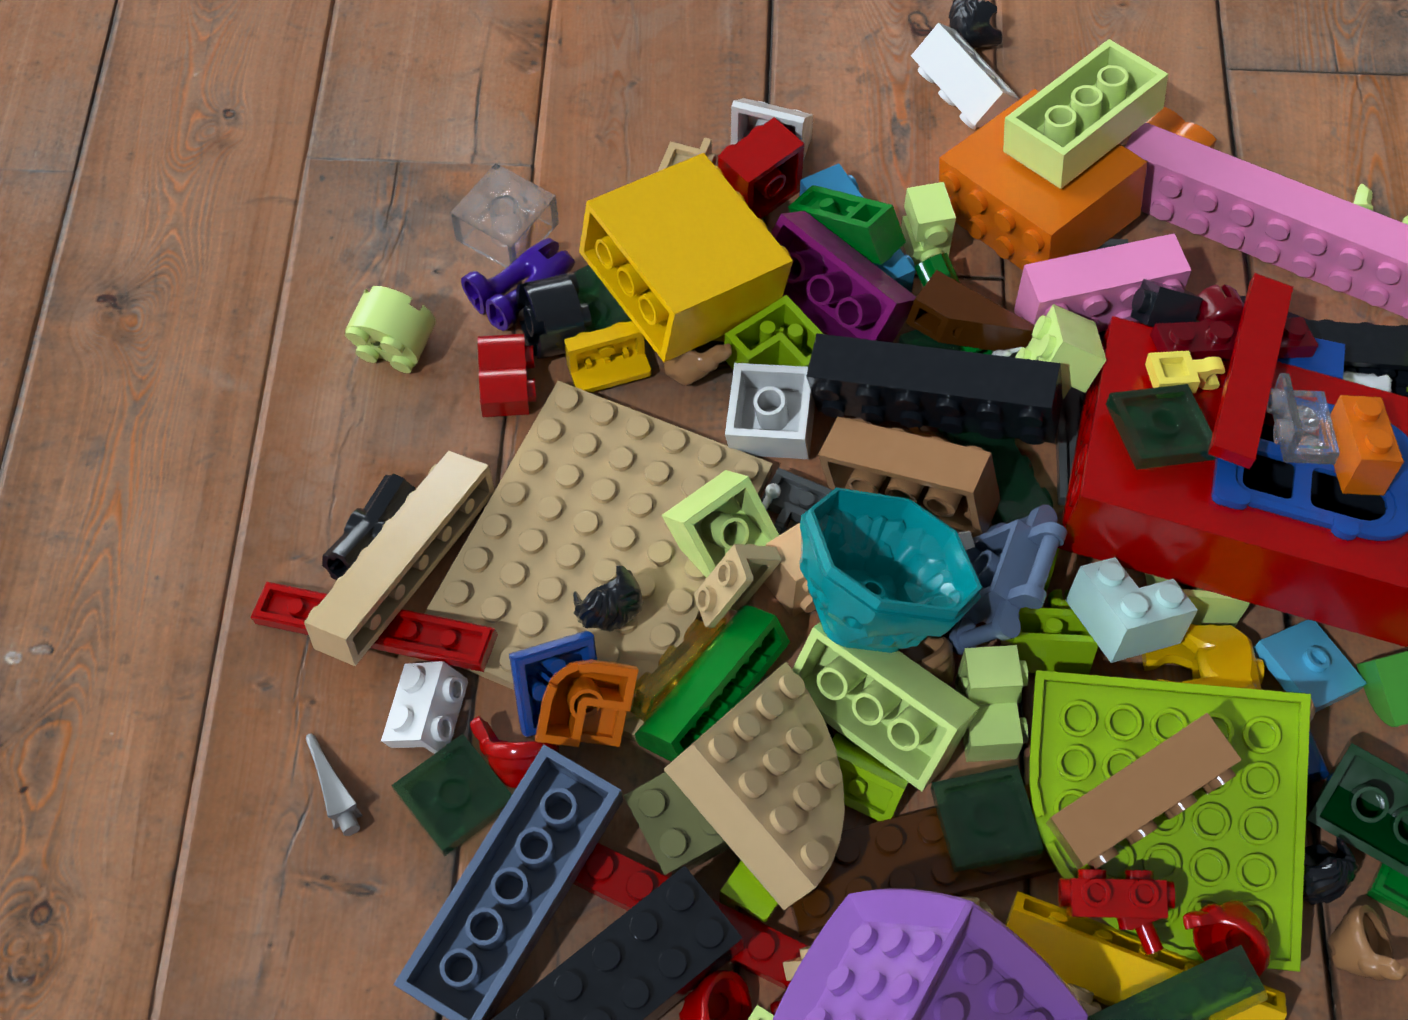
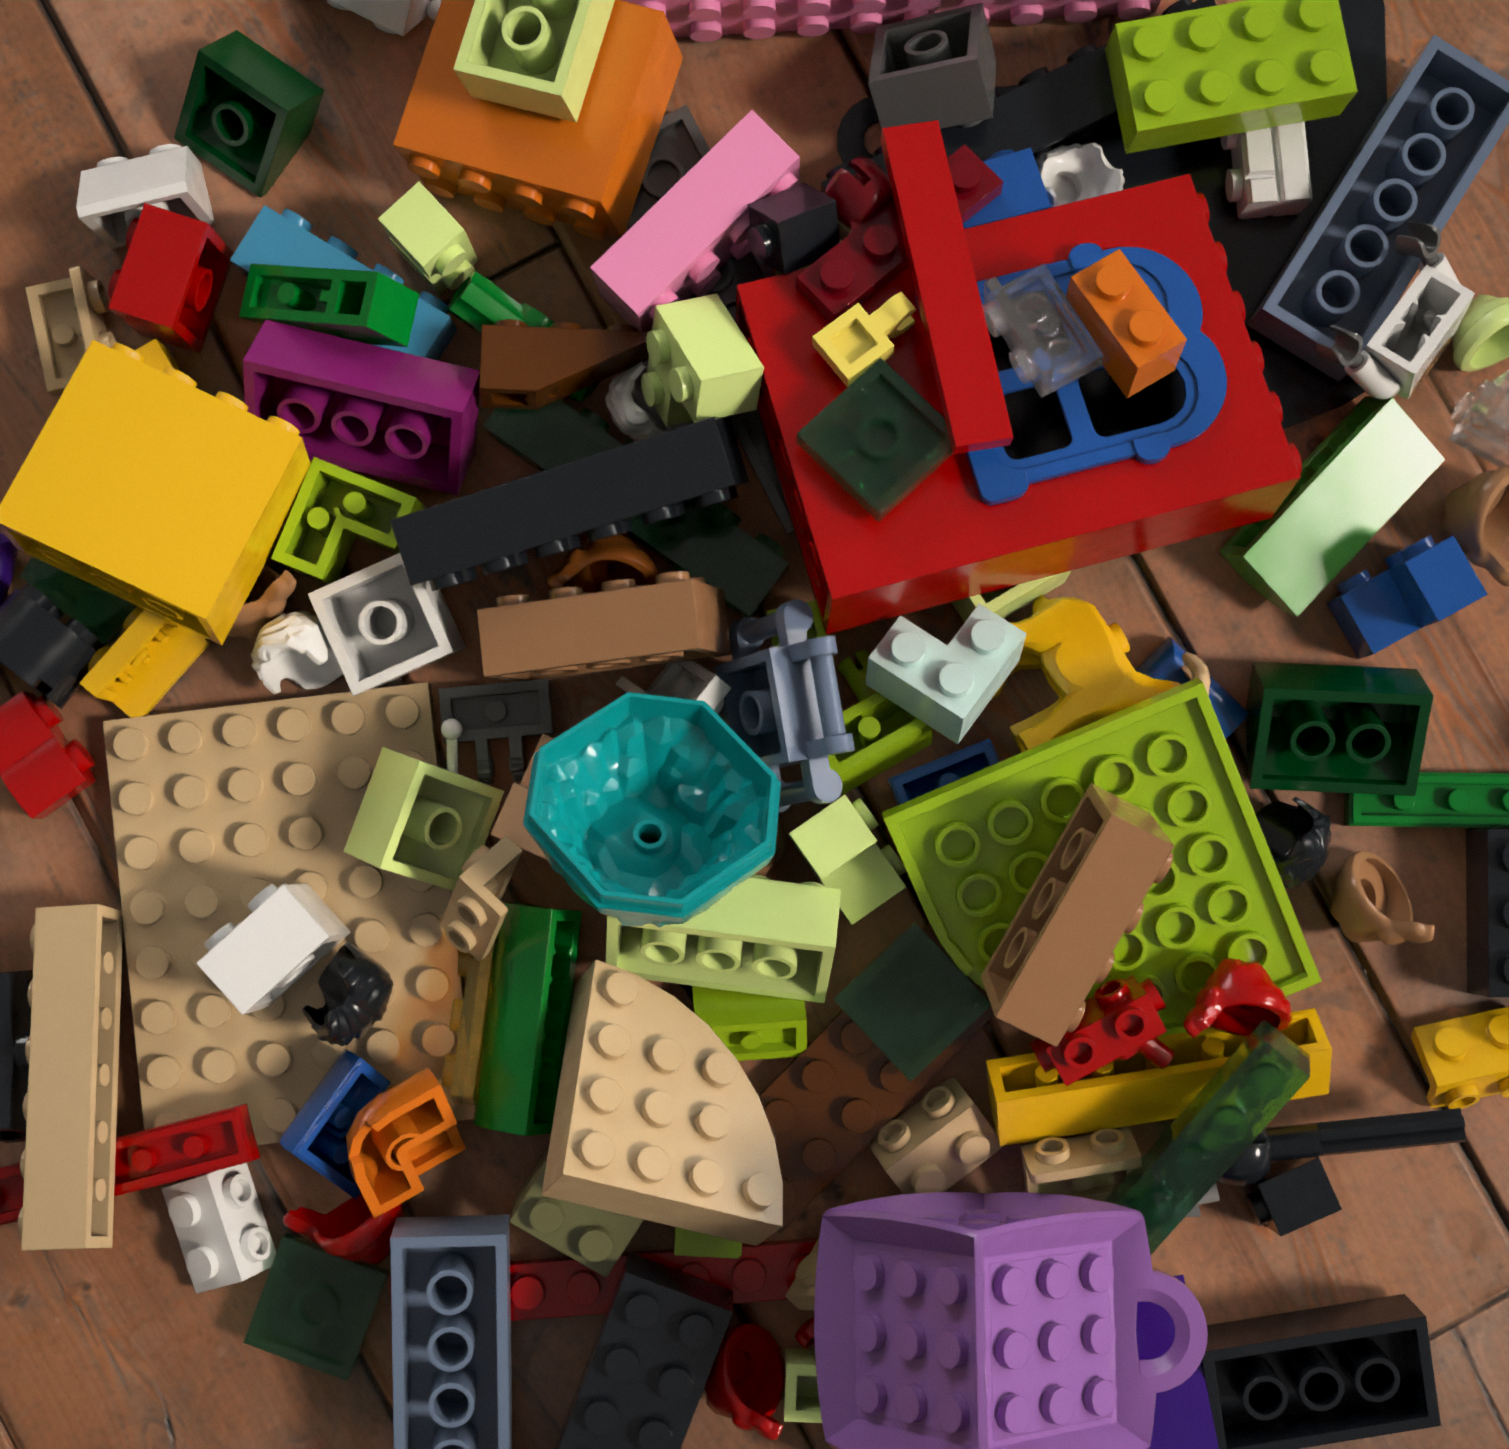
camera: 30 degrees left, 25 degrees up
(338, 801) = (194, 1387): light grey piece -> none
(583, 539) = (272, 946): none -> white brick
(702, 401) = (294, 650): none -> white hair
(857, 120) = (246, 111): none -> dark green slope
(1309, 663) = (1172, 596): medium azure plate -> none
(1316, 284) = (934, 69): none -> dark grey brick

